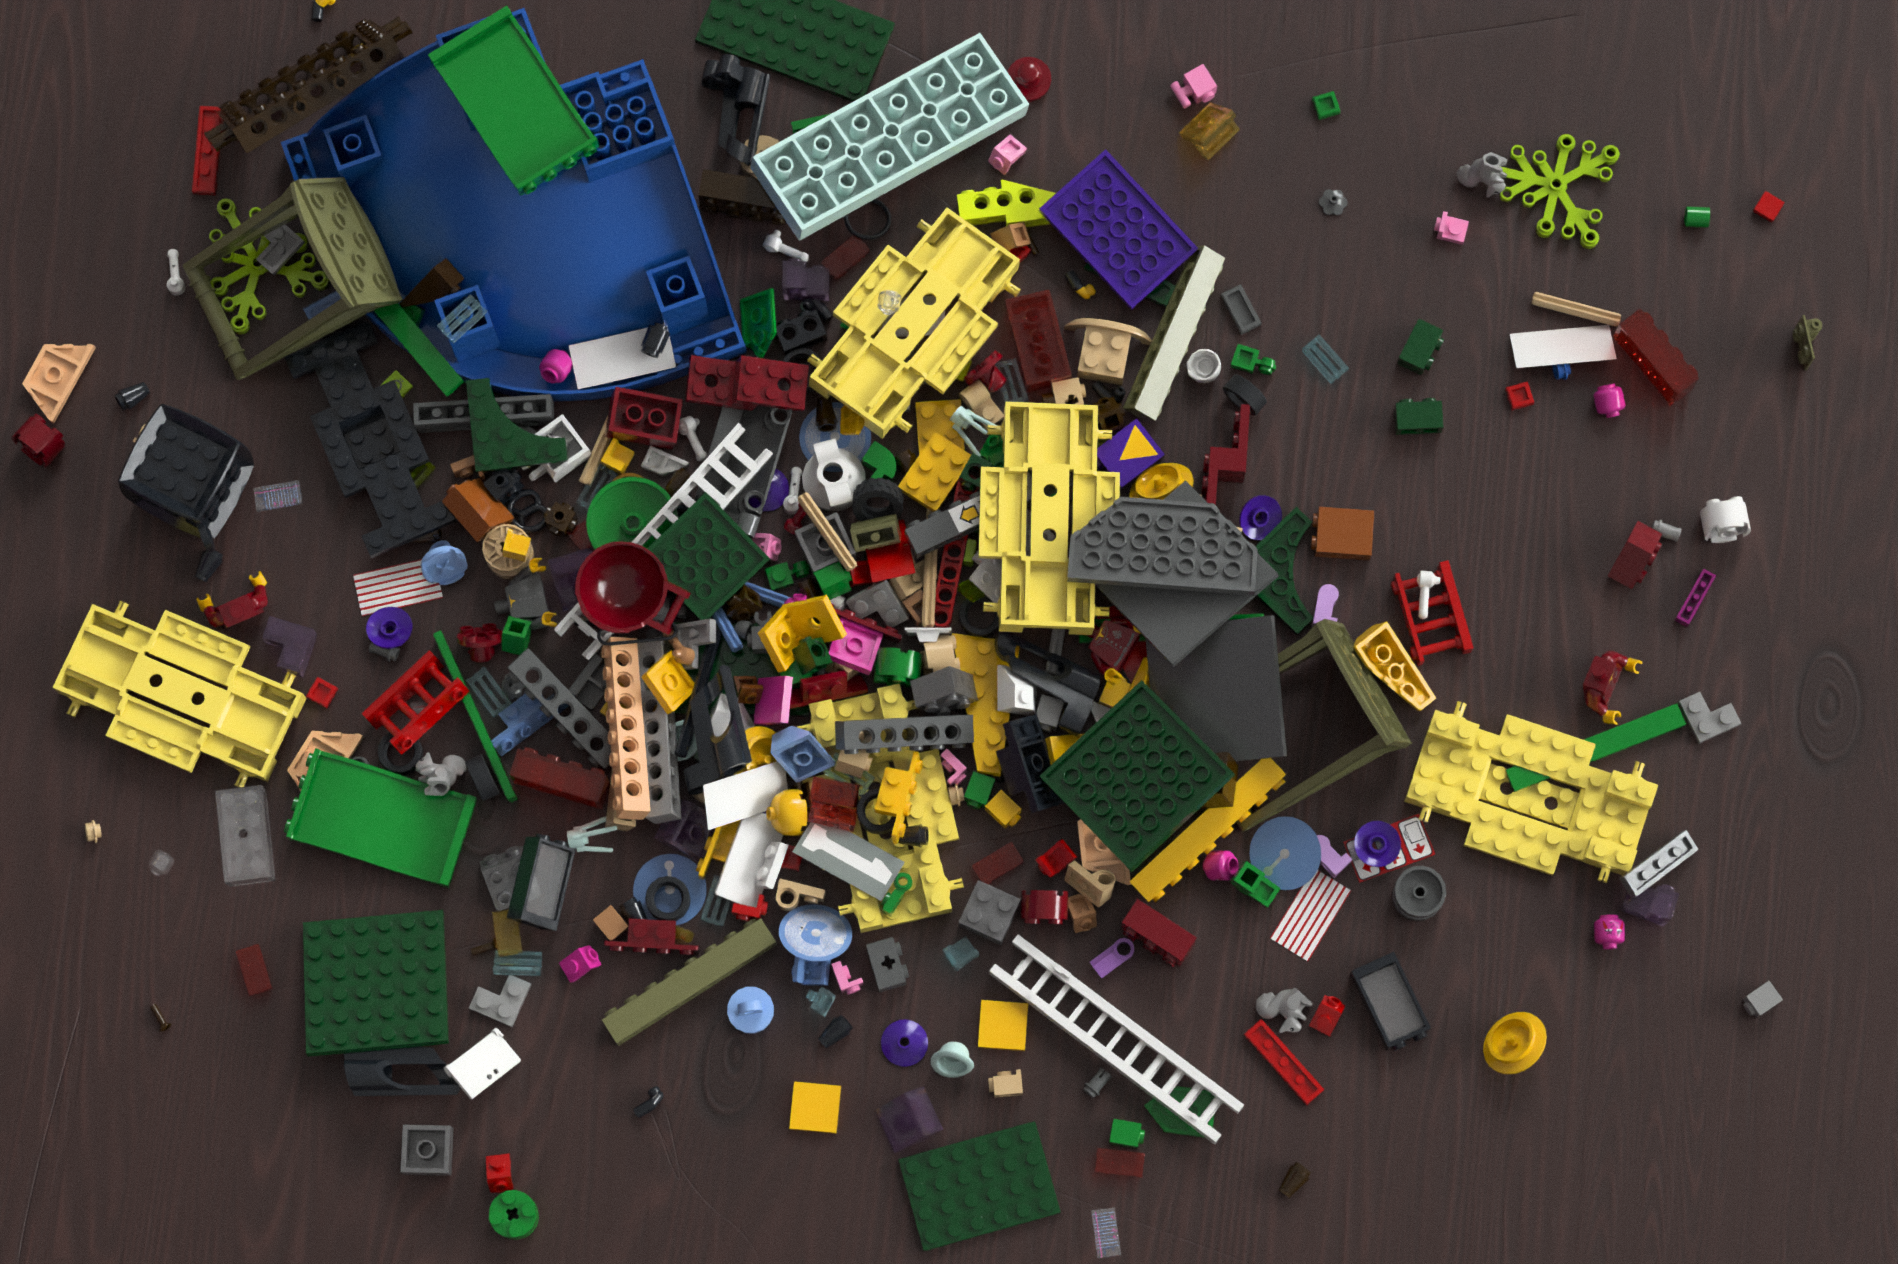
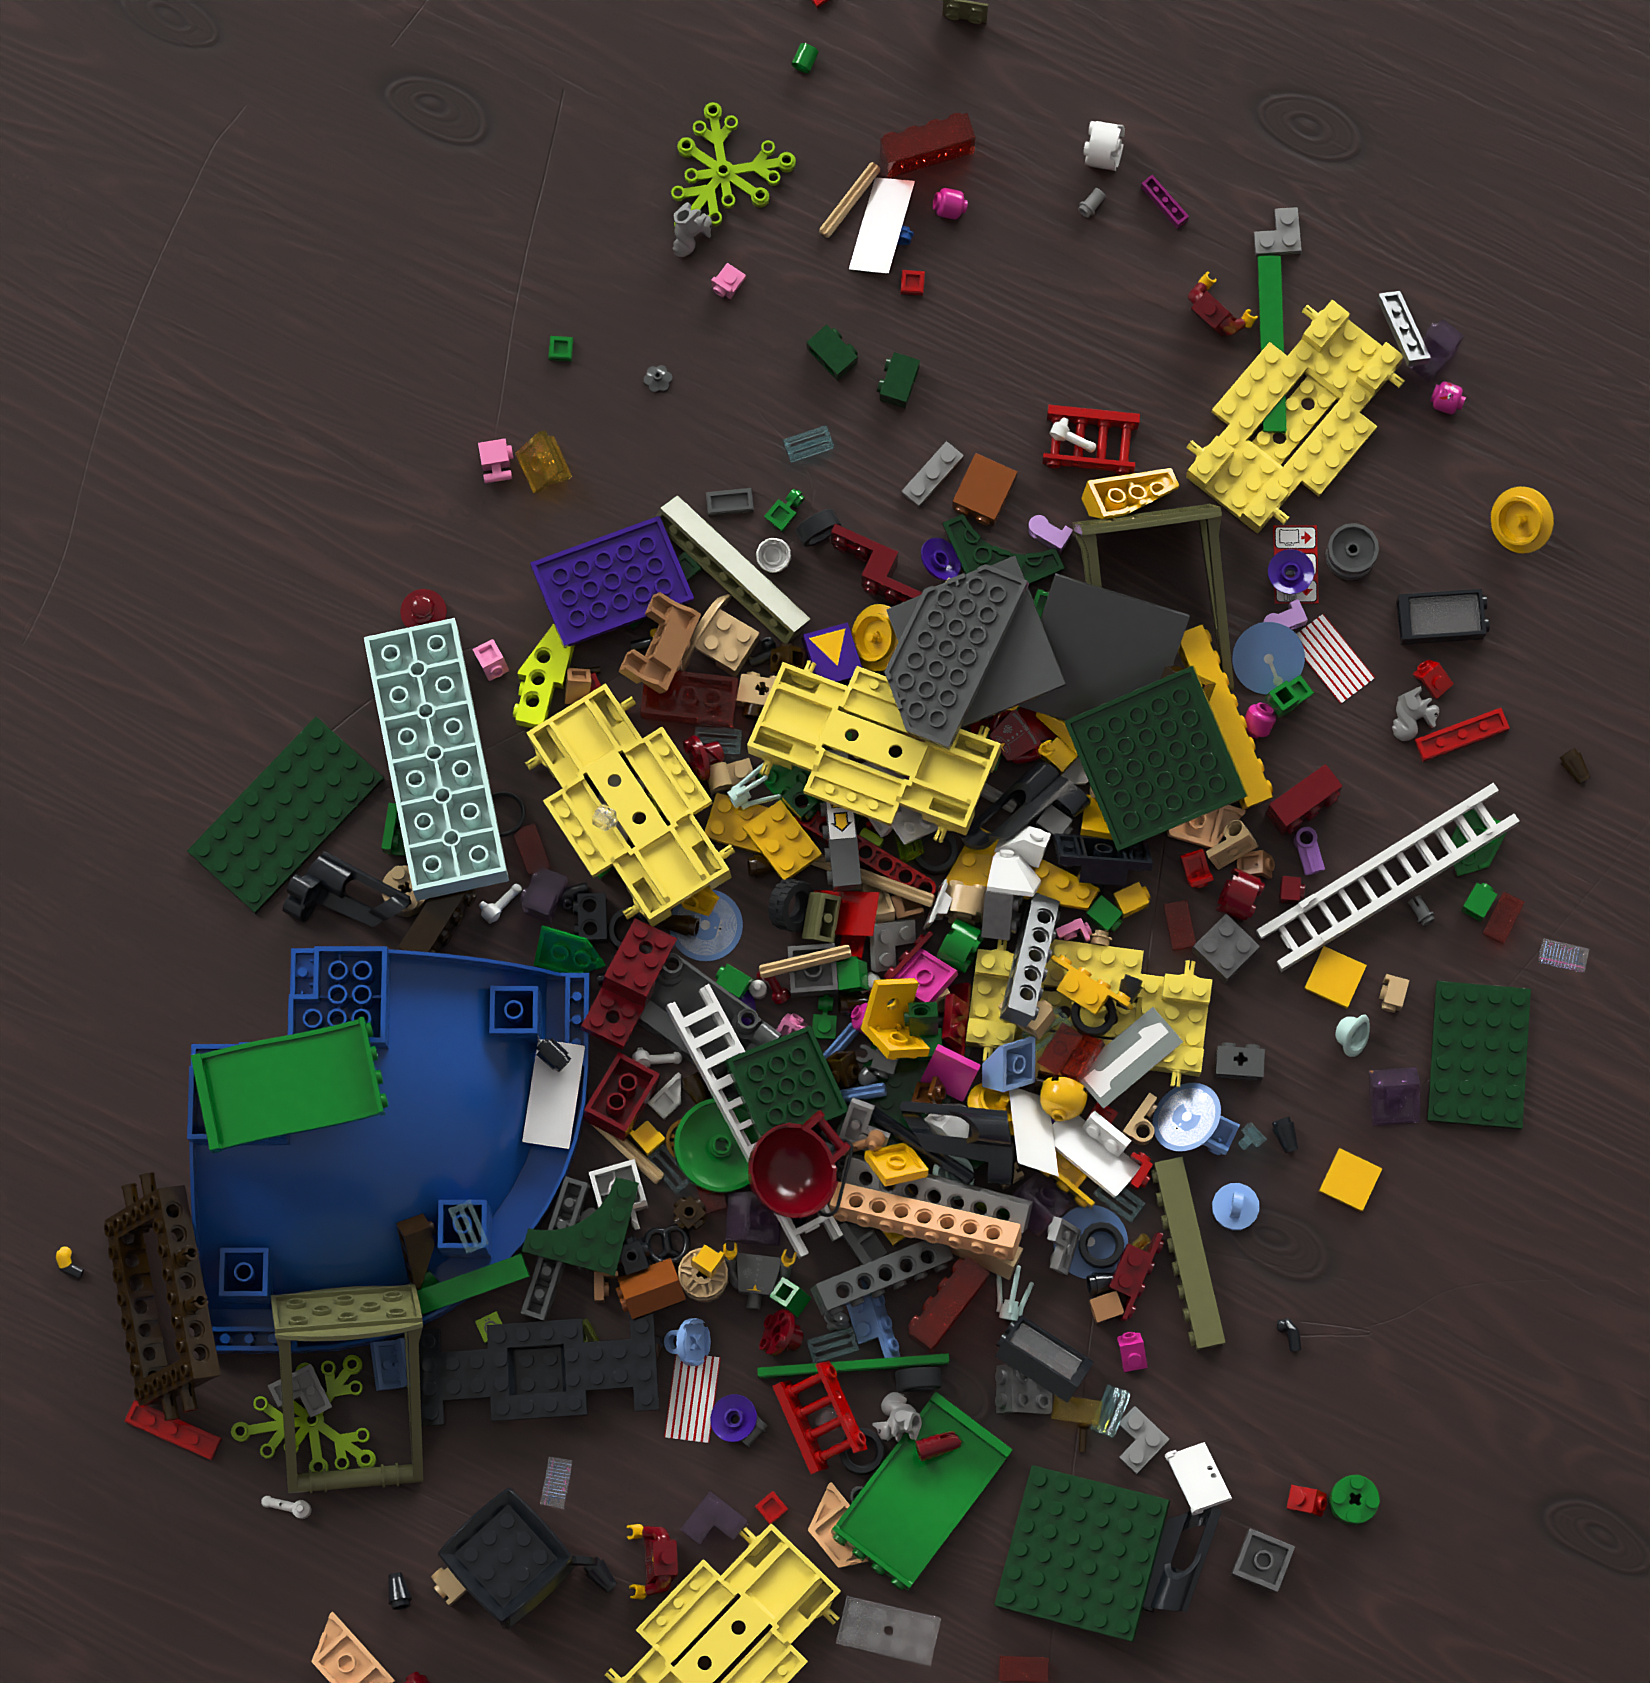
camera: 70 degrees left, 0 degrees up
(427, 815) = (937, 1445): none -> dark red hinge
(555, 366) = (537, 1161): dark pink head -> none
(659, 864) = (1066, 1239): none -> light grey plate
(788, 477) = (733, 980): none -> green brick
(826, 494) = (747, 957): white piece -> none
(842, 975) = (1235, 1108): bright pink bracket -> none
(880, 461) = (750, 889): green brick -> none
(892, 900) = (1183, 1029): green plate -> none
(904, 1055) = (1312, 1085): dark purple dish -> none
(960, 953) = (1253, 990): clear light blue panel -> none
(977, 688) = (1012, 875): none -> white slope
(1069, 954) = (1291, 890): none -> dark red plate
(1073, 298) = (667, 646): none -> medium nougat bracket
(1341, 482) = (932, 474): none -> light grey plate
(1637, 552) = (1108, 236): dark red brick -> none
(1761, 1000) = (1559, 289): light grey brick -> none

